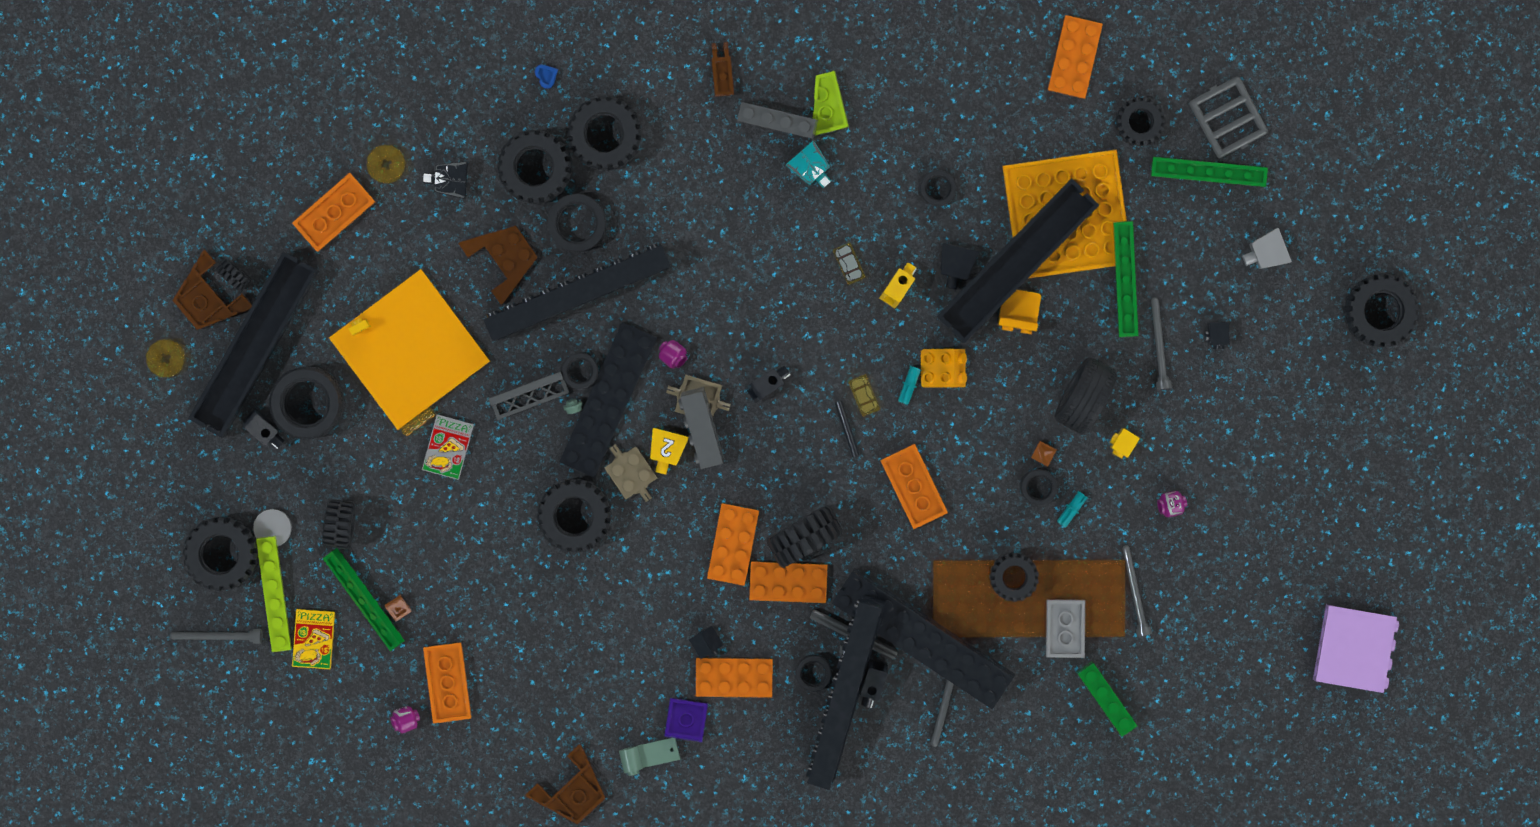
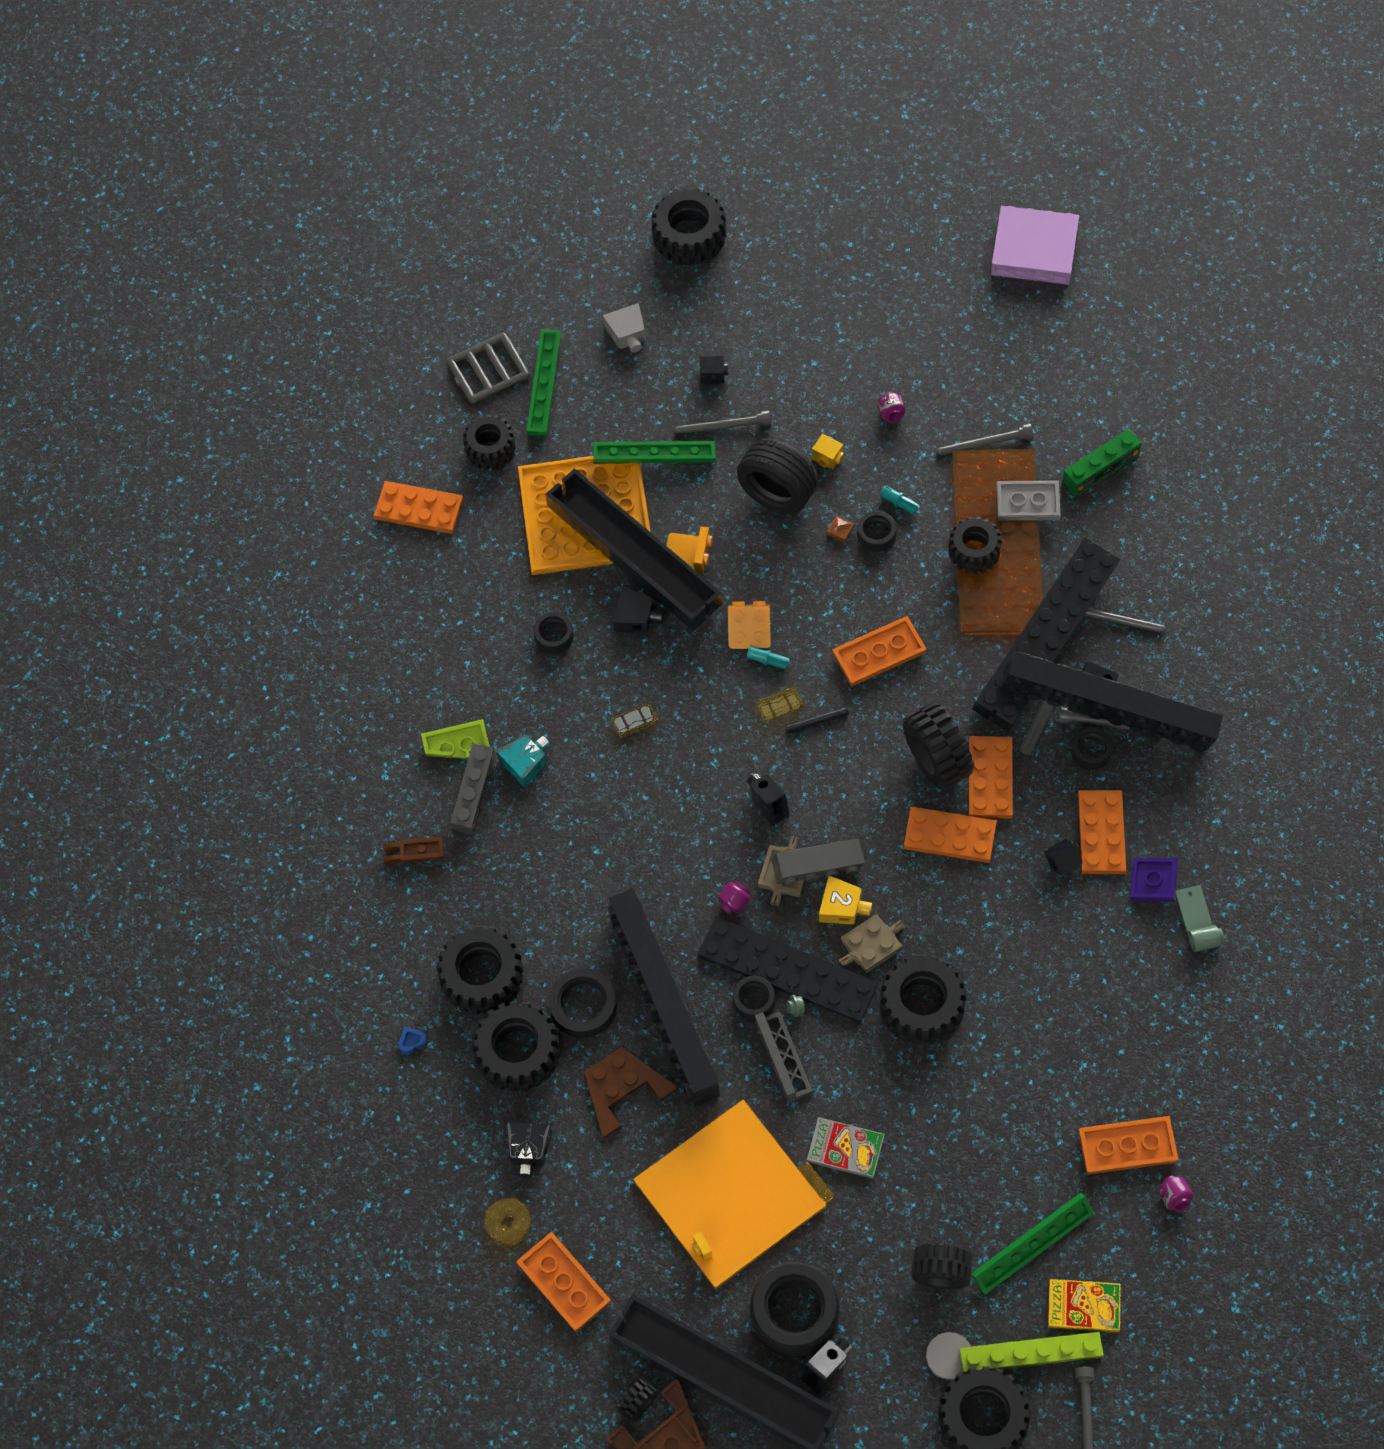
camera: 85 degrees left, 25 degrees down
(398, 608) = (1041, 1203): dark orange tile -> none
(577, 796) = (1251, 996): reddish brown wing -> none
(895, 291) = (660, 666): yellow torso -> none

